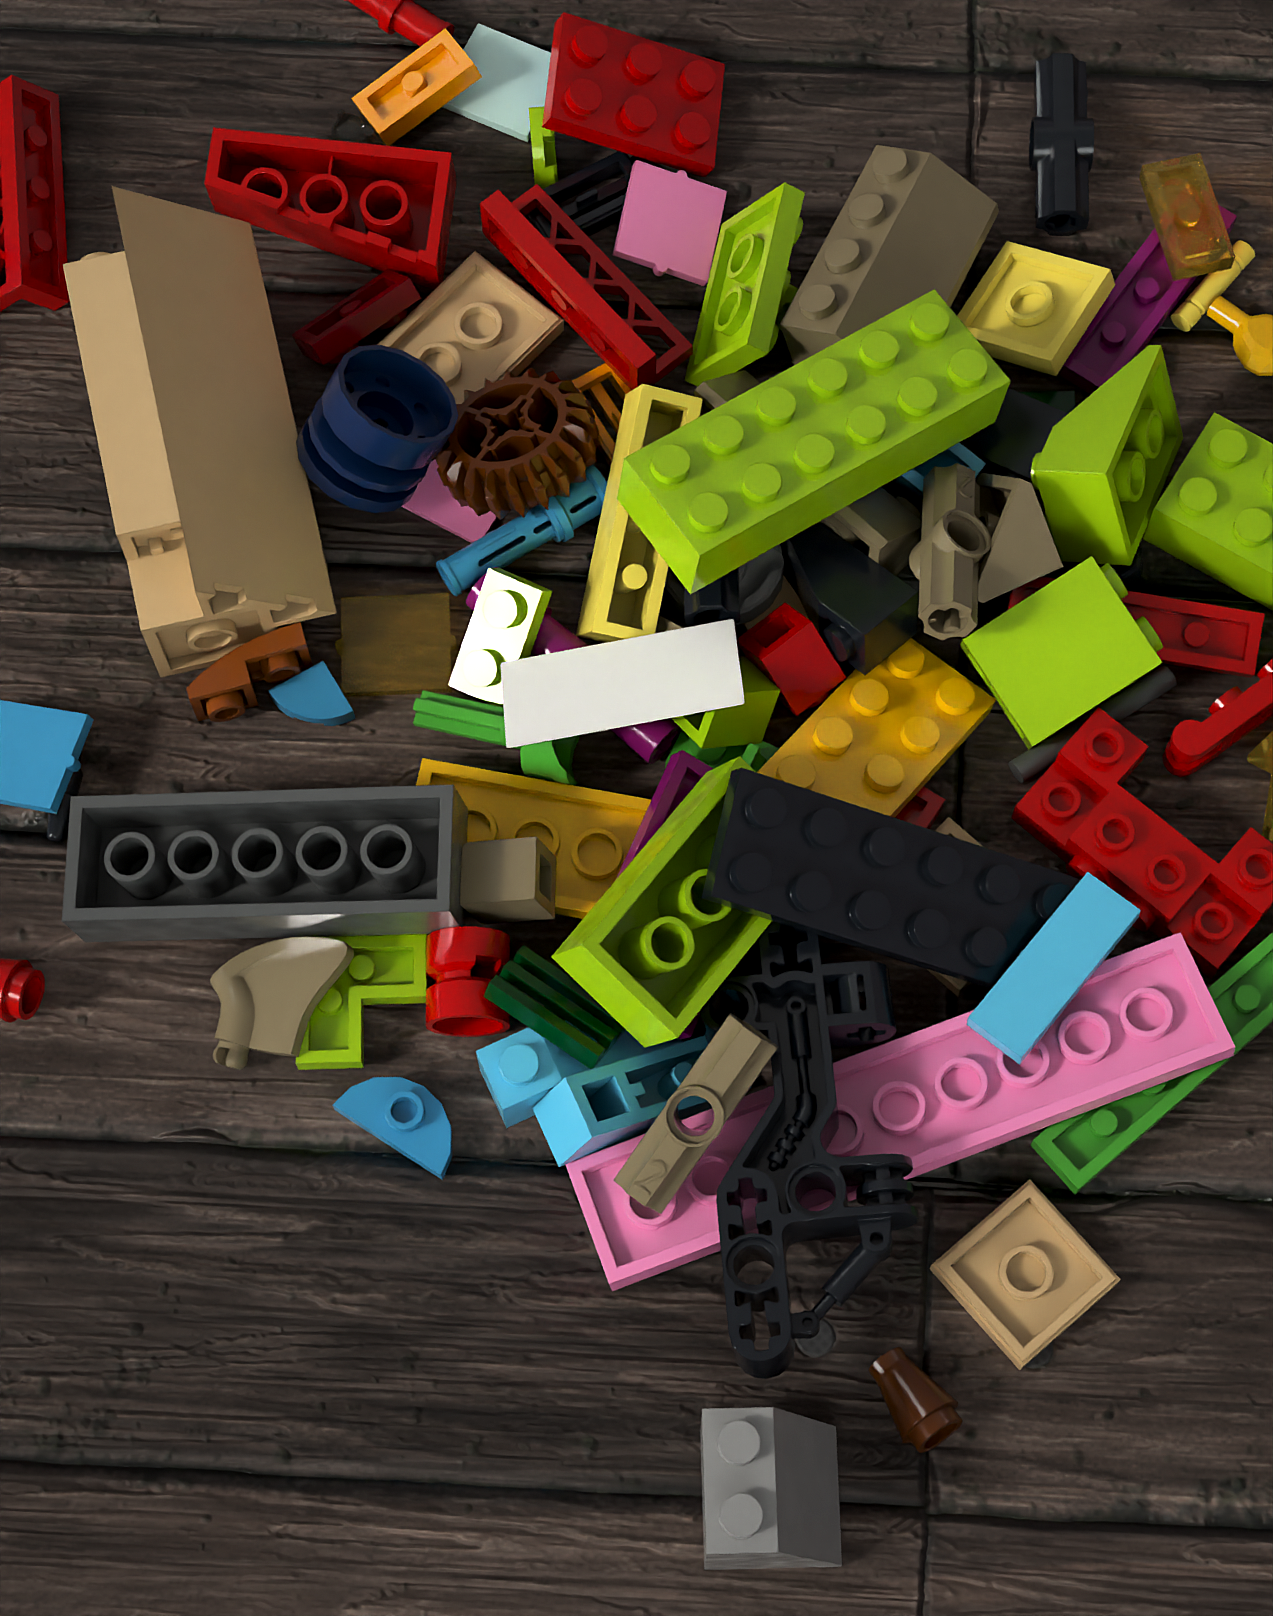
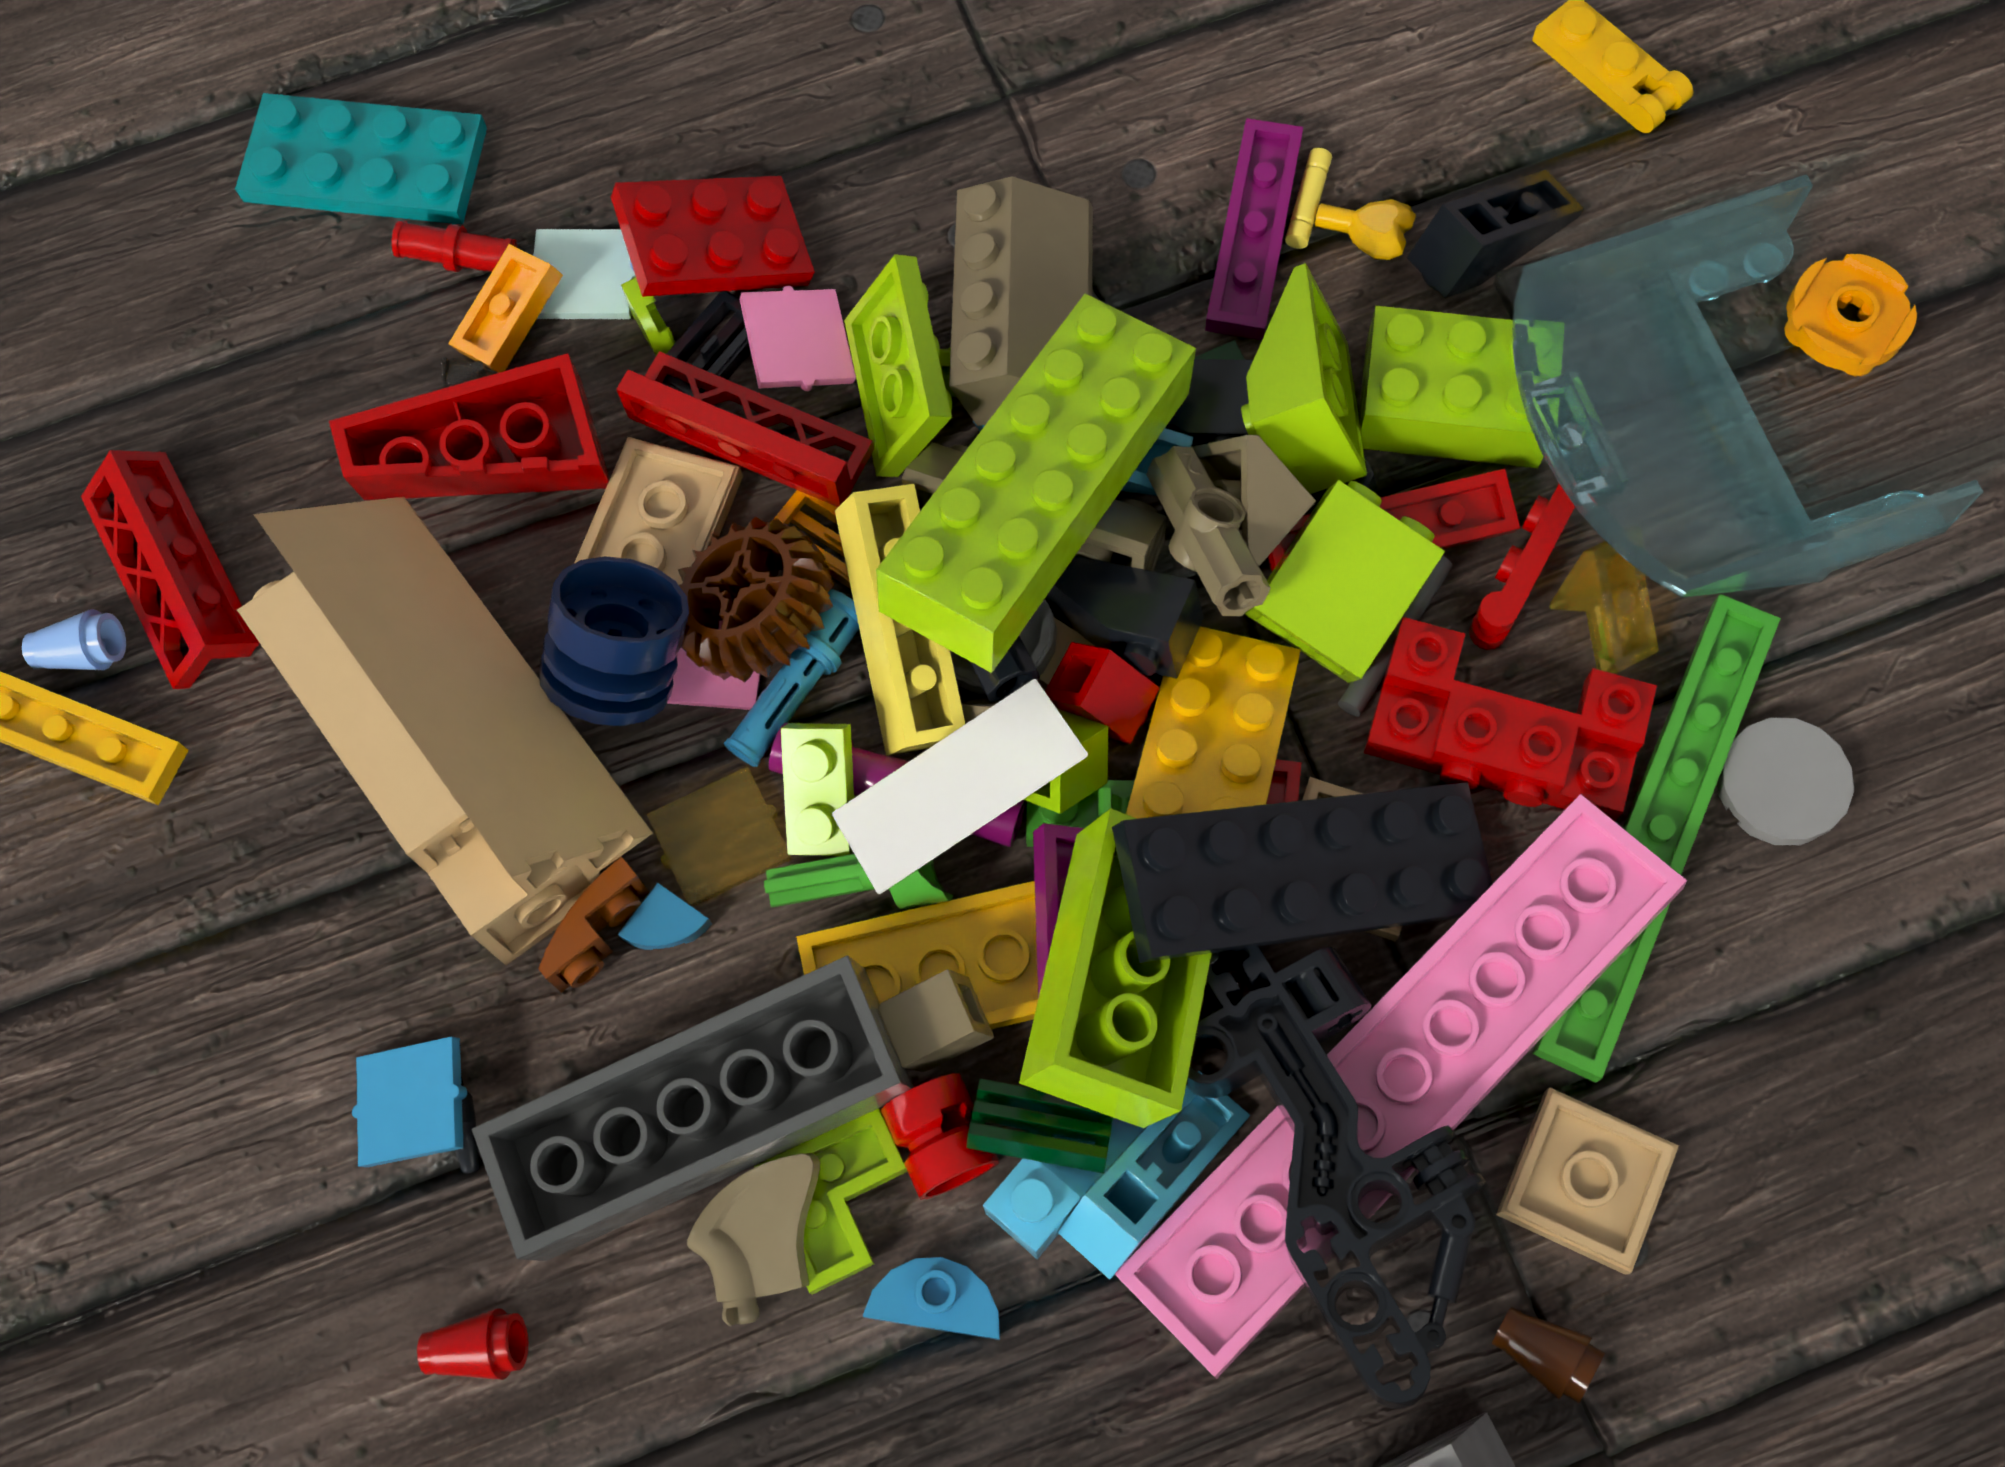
camera: 20 degrees left, 0 degrees up
(369, 308) = (553, 529): dark red plate -> none
(672, 1149) = (1220, 1217): dark tan piece -> none
(1035, 306) = (1168, 274): light yellow plate -> none
(1053, 967) = (1485, 880): medium azure tile -> none
(1061, 145) = (1117, 127): black piece -> none
(1186, 216) = (1263, 143): clear yellow plate -> none

